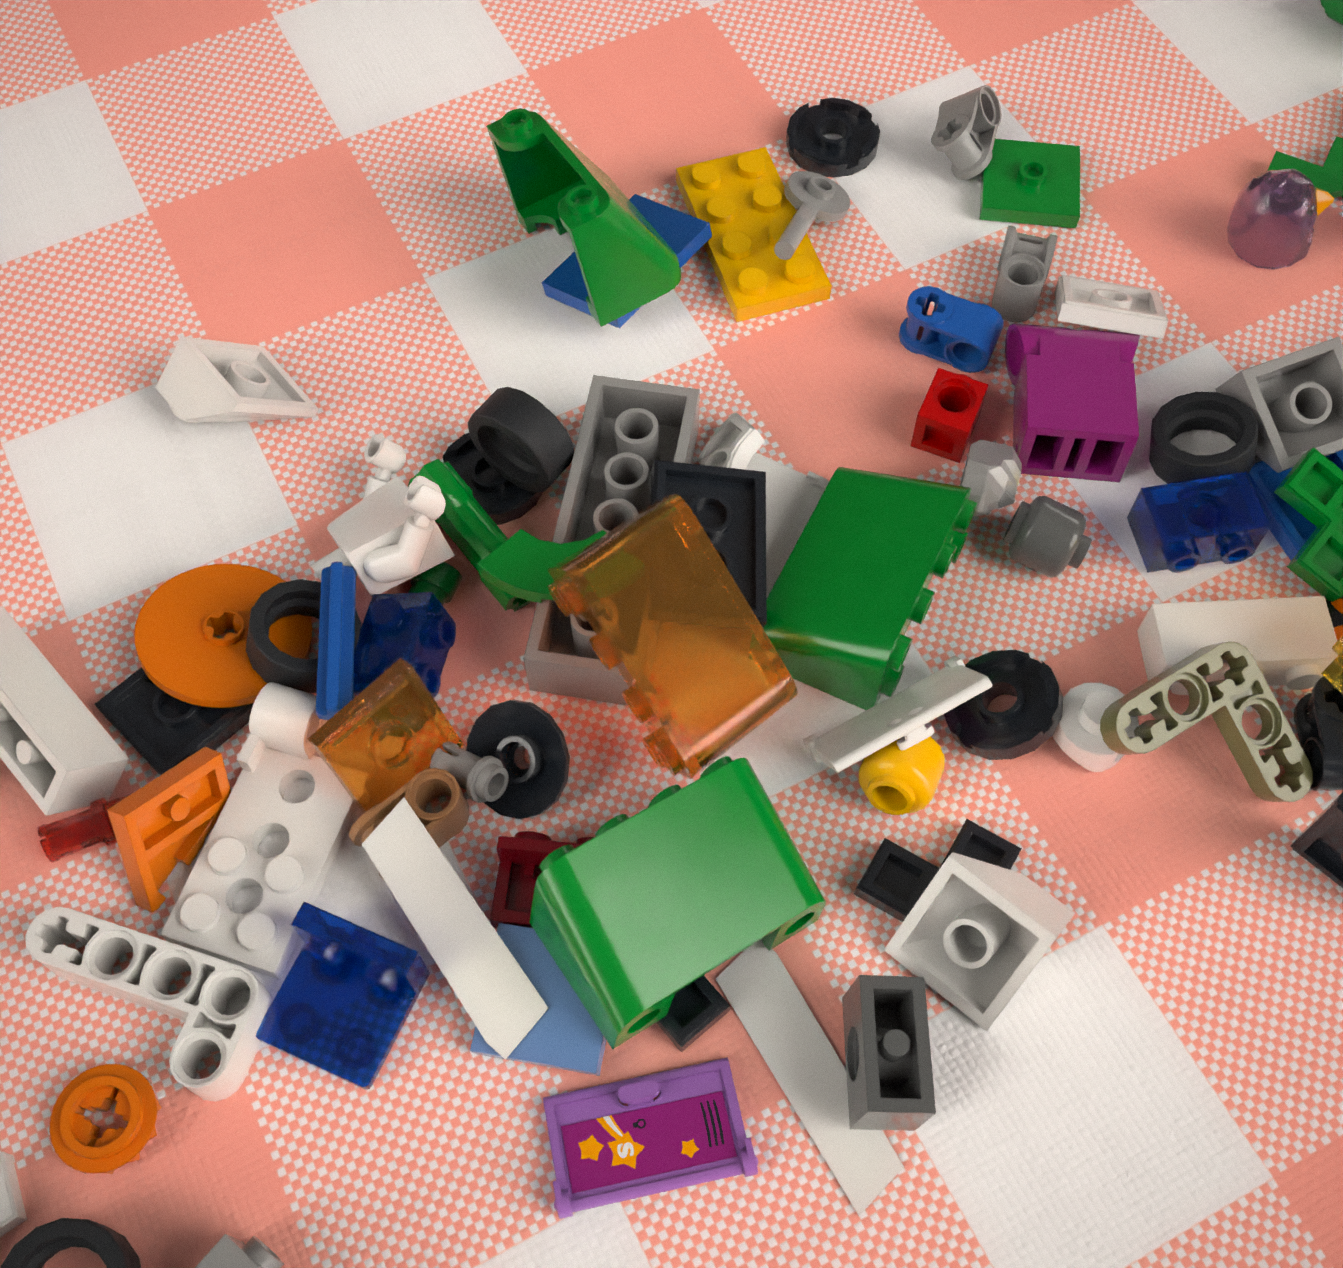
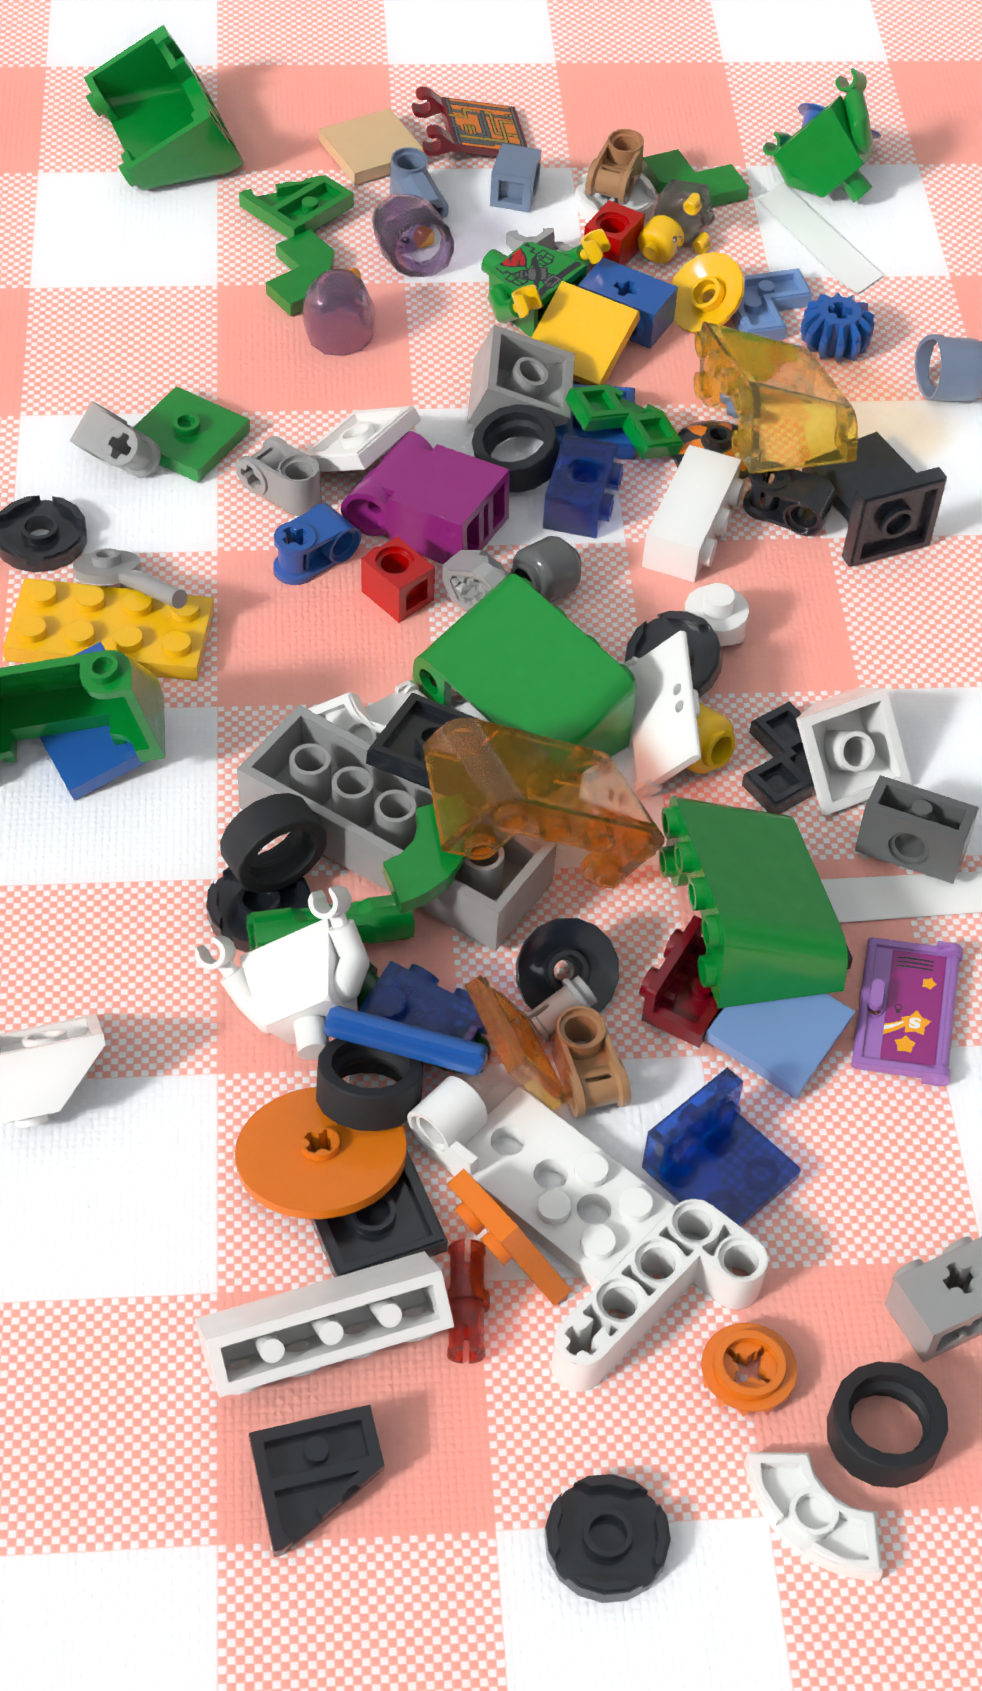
camera: 70 degrees left, 10 degrees down
(455, 930) = (698, 1056): white sticker -> none
(1226, 703) = (751, 531): olive beam -> none

